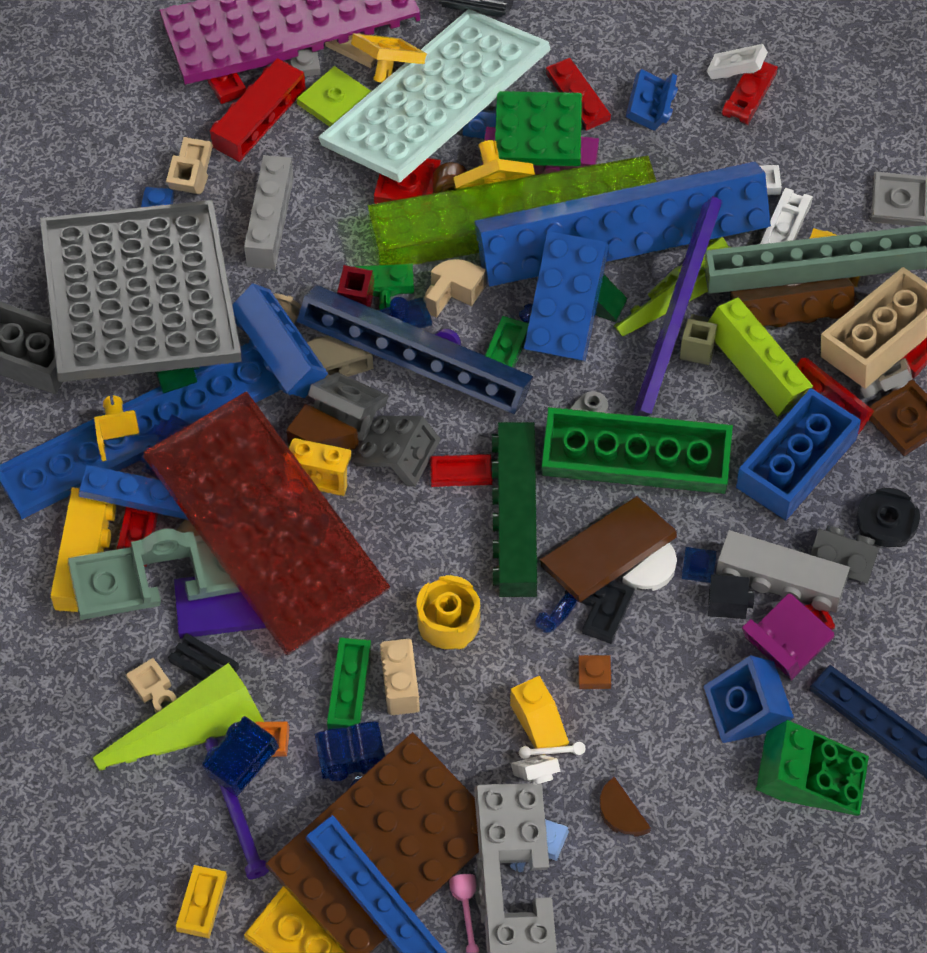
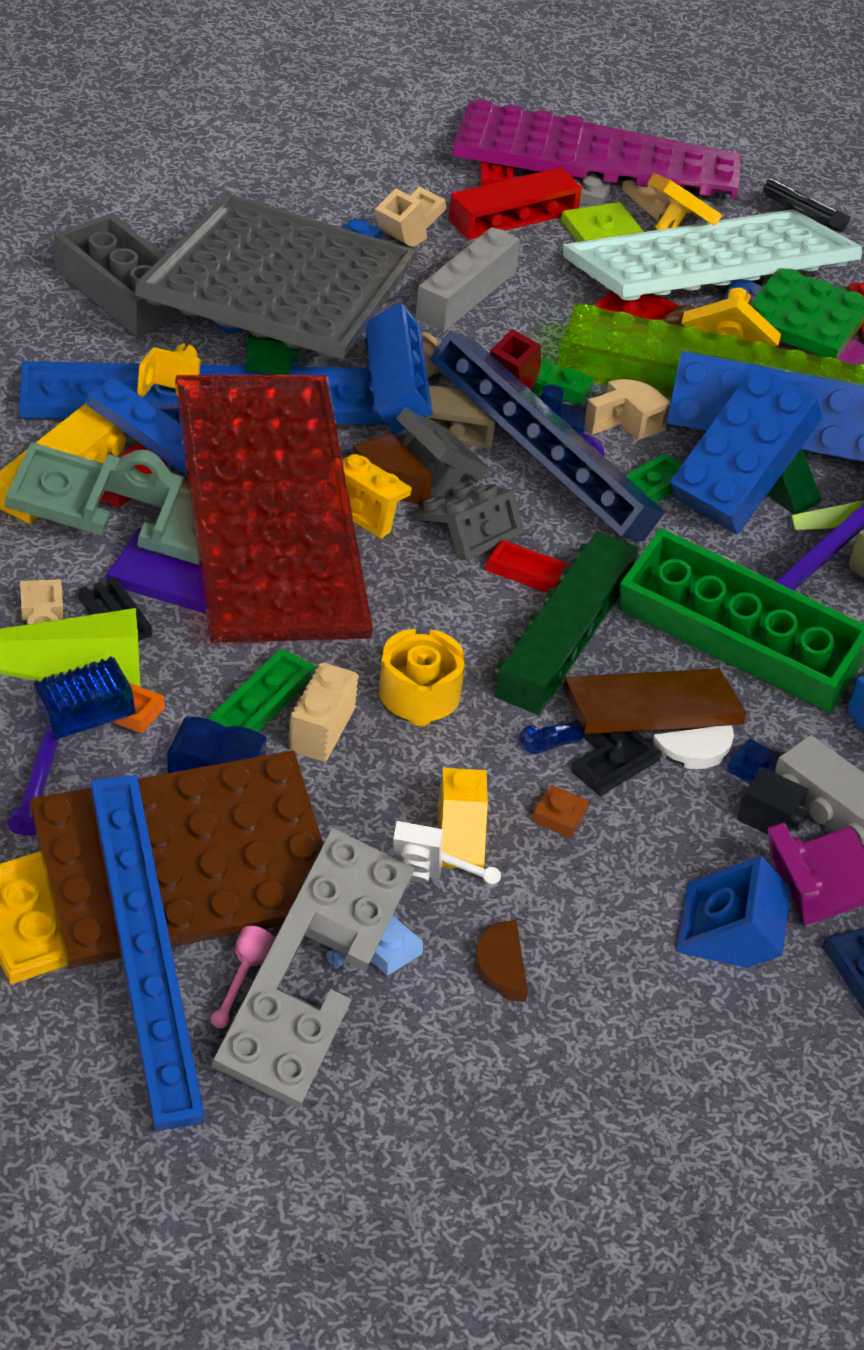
camera: 20 degrees right, 15 degrees down
(811, 770) = (775, 1023): green slope -> none

